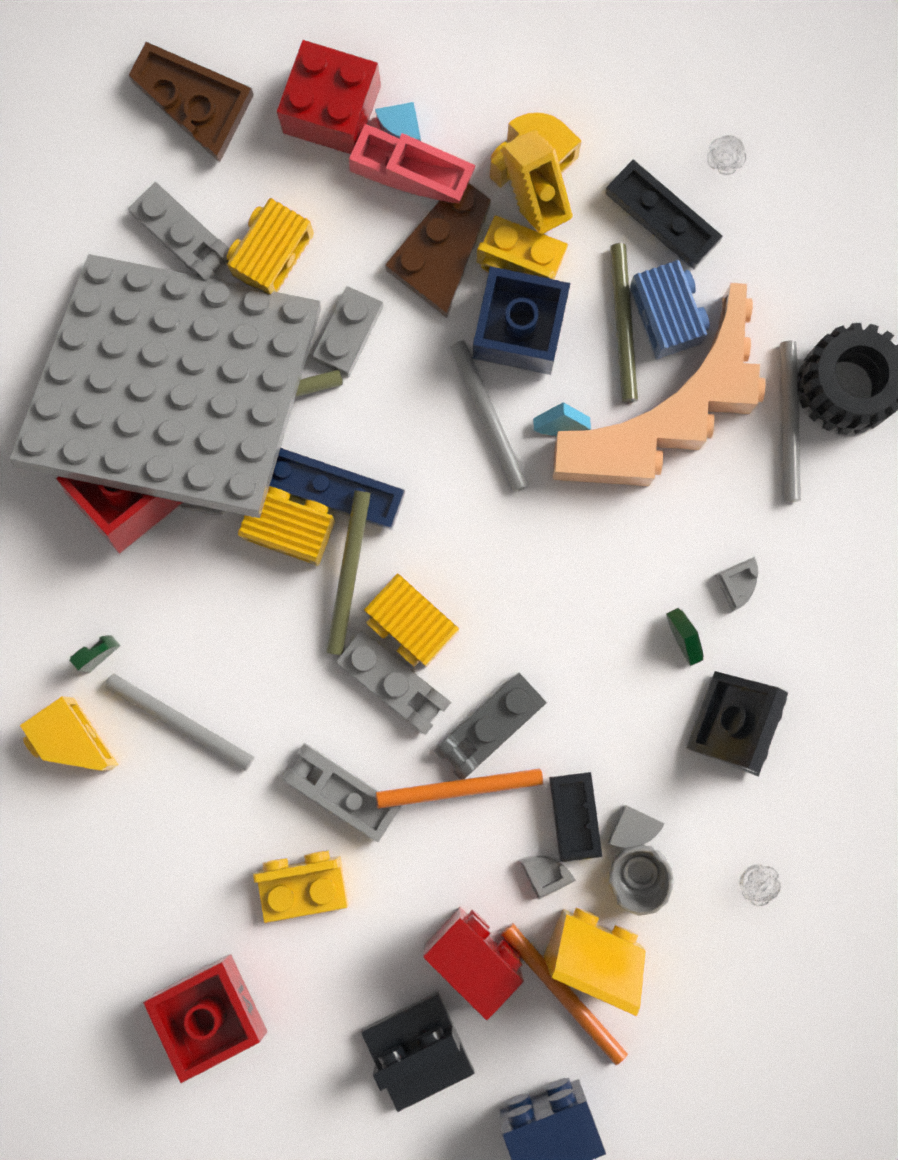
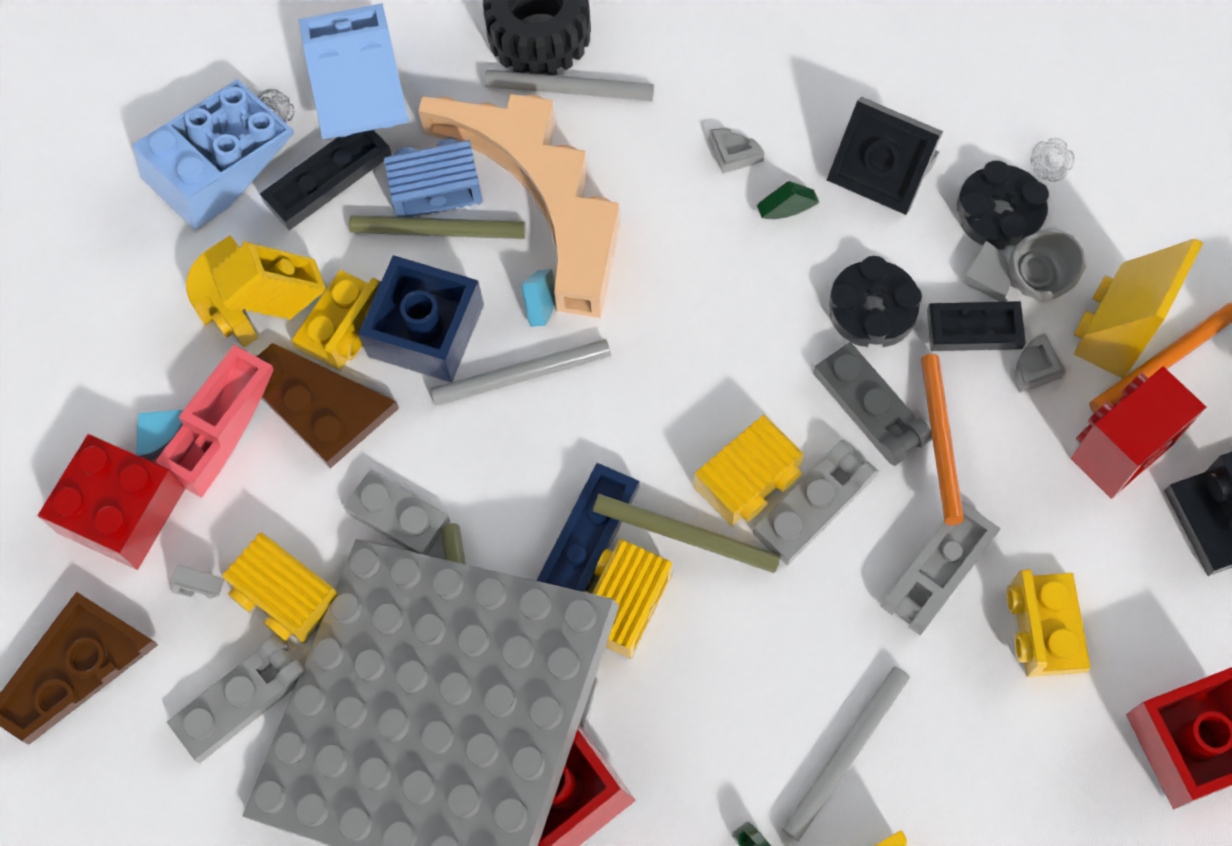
camera: 85 degrees left, 15 degrees down
(268, 179) = (187, 581): none -> light grey tile
(588, 699) = (879, 279): none -> black plate
(671, 109) = (211, 152): none -> light blue slope
(730, 831) = (1005, 183): none -> black plate
(766, 216) = (353, 71): none -> light blue slope

